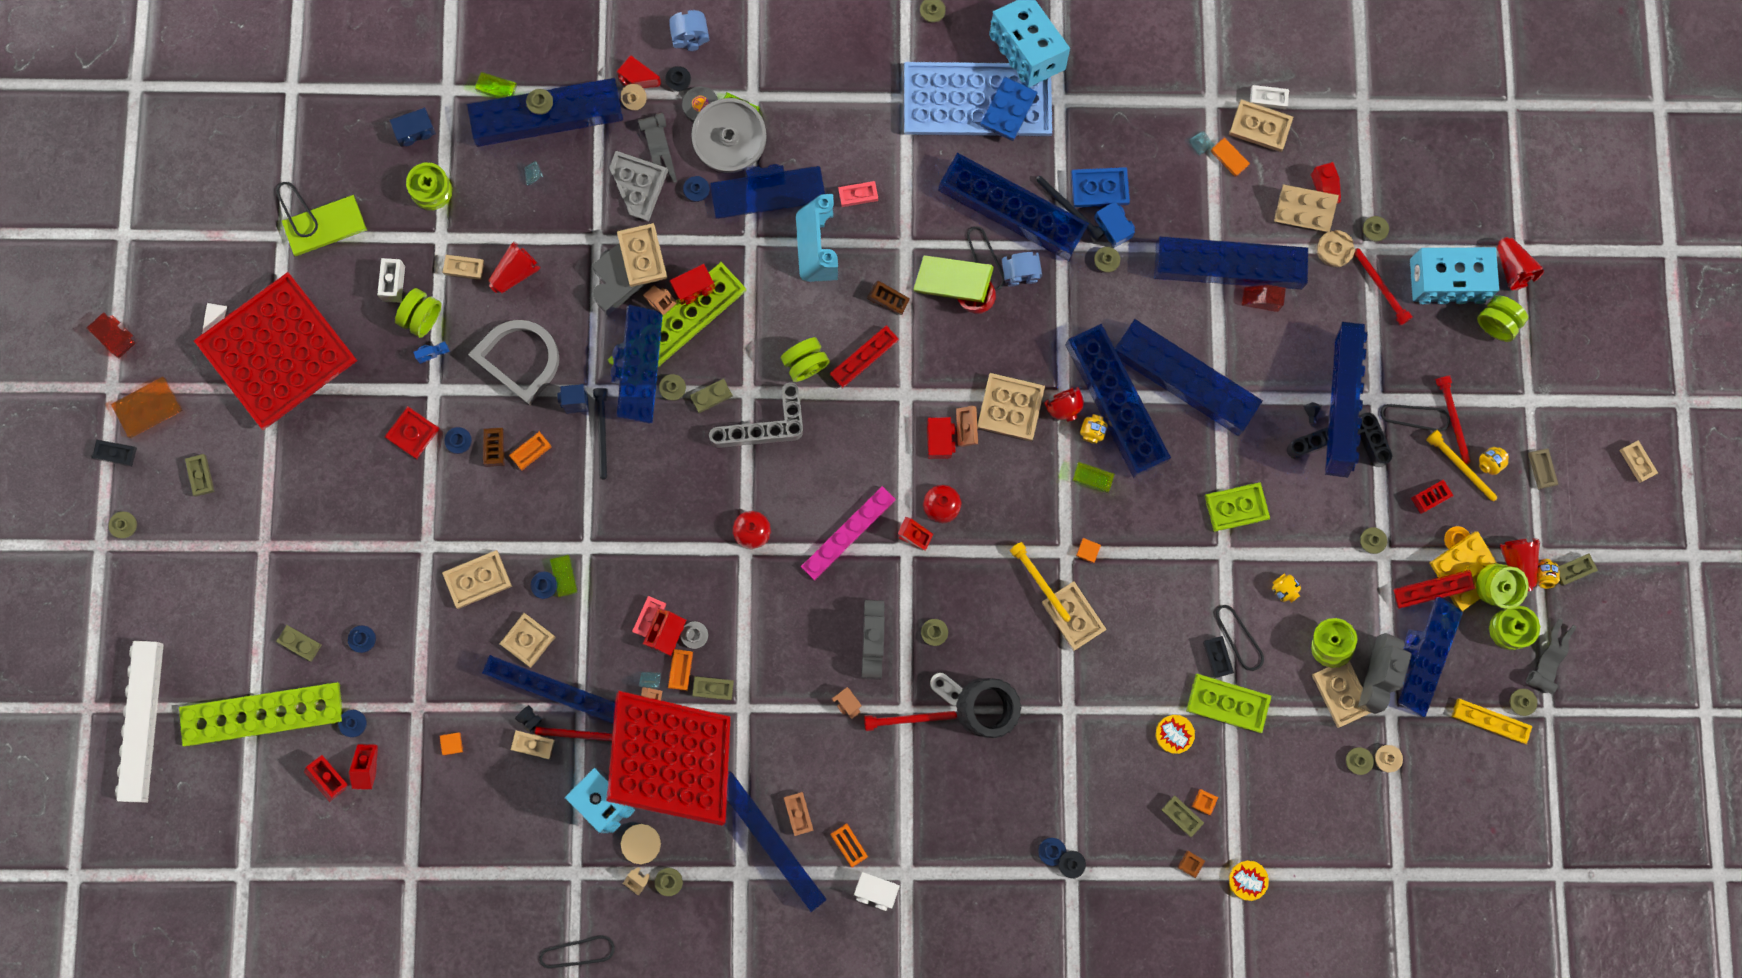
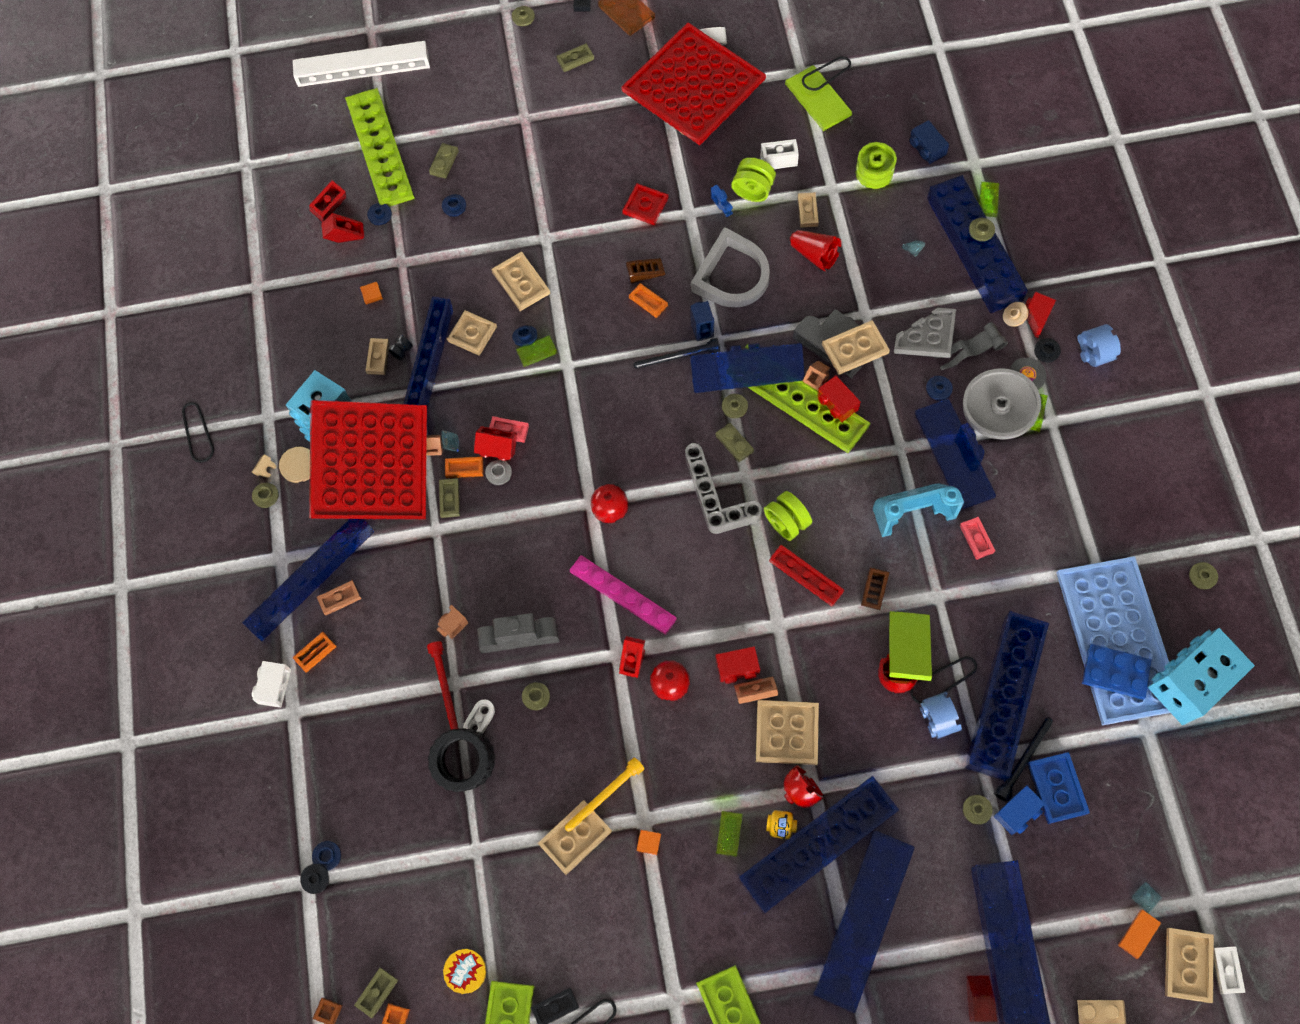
camera: 95 degrees right, 10 degrees down
(458, 440) = (645, 240): dark blue piece -> none
(573, 734) = (392, 379): red bar -> none

